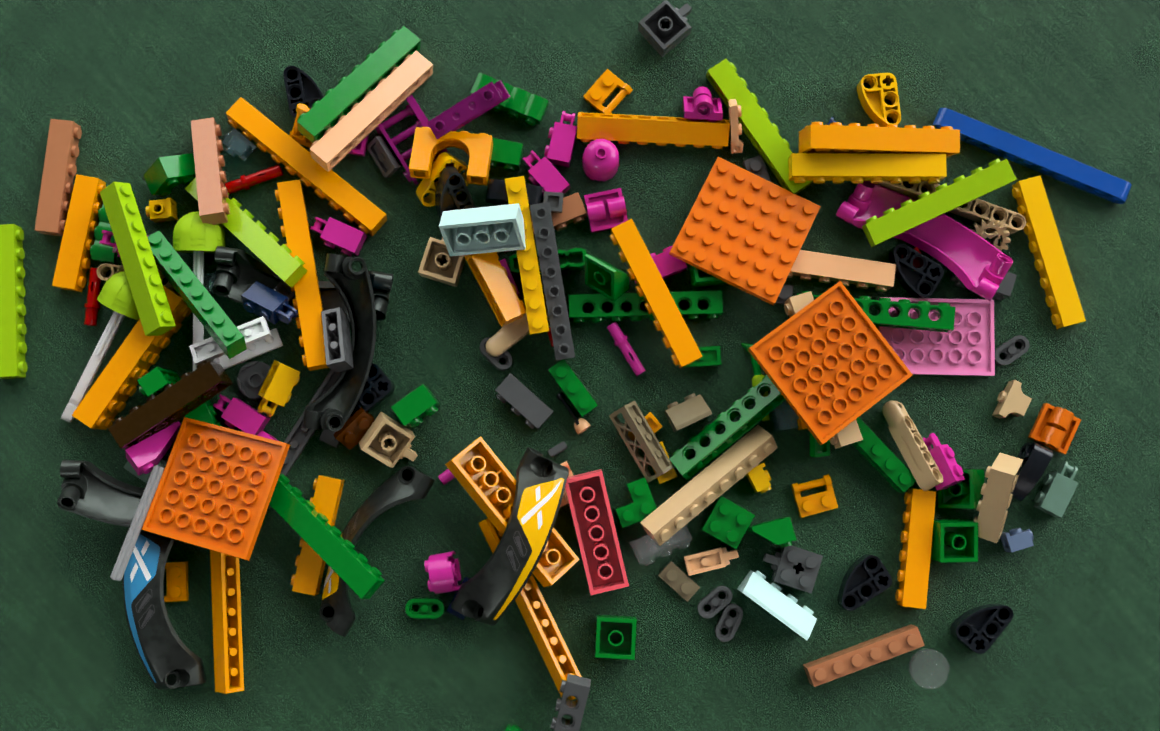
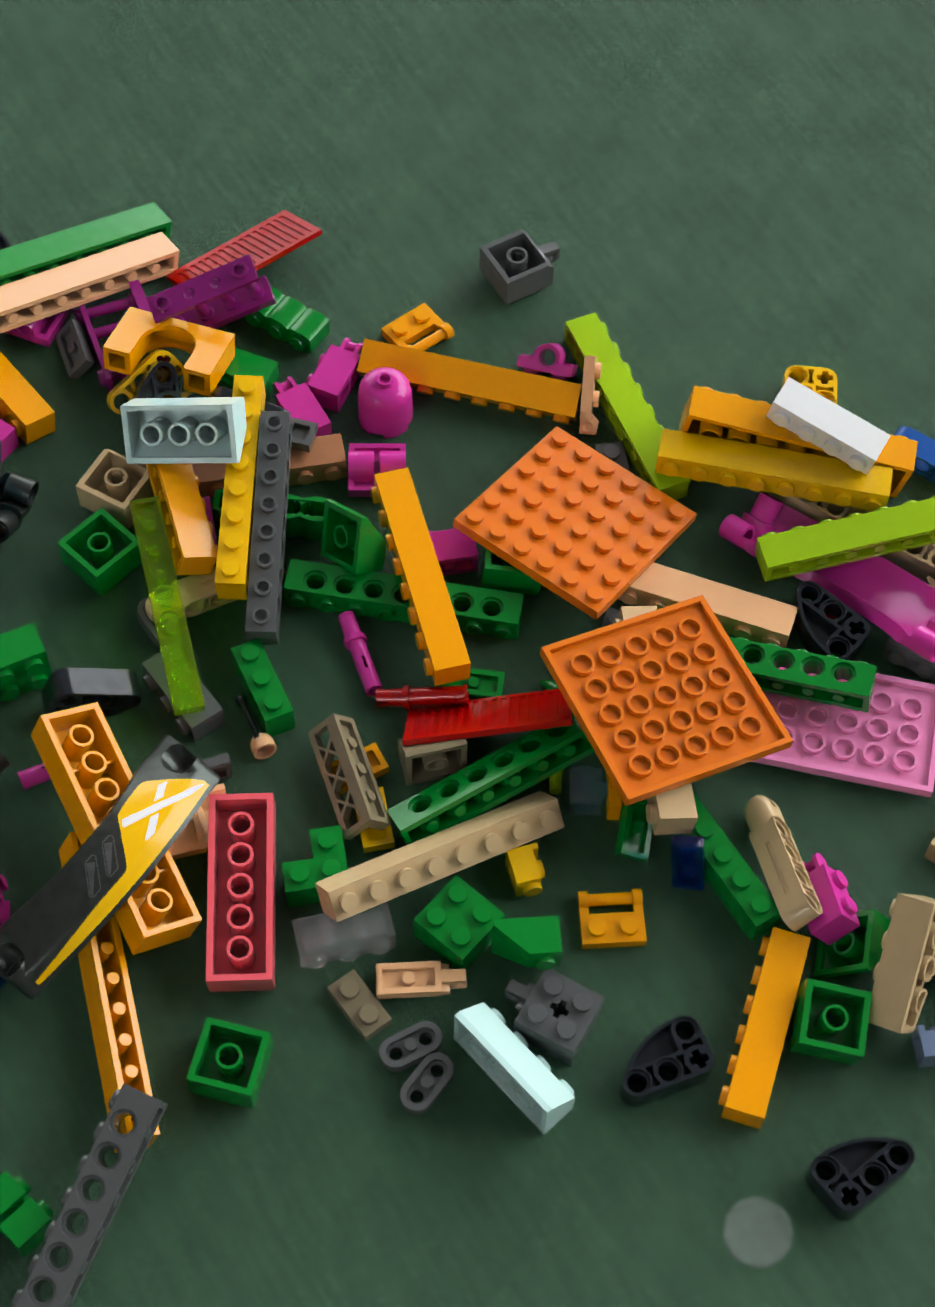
camera: 10 degrees right, 25 degrees down
(446, 312) = (100, 551): none -> green brick
(468, 416) = (73, 687): none -> black beam
(476, 55) = (263, 242): none -> window
(501, 350) = (166, 606): none -> clear neon green plate
(672, 373) = (417, 696): none -> red pin
(717, 387) = (487, 717): none -> red window
(856, 457) = (688, 862): none -> clear blue plate
(863, 655) = (645, 1179): nougat brick -> none
(903, 138) = (827, 426): none -> white brick

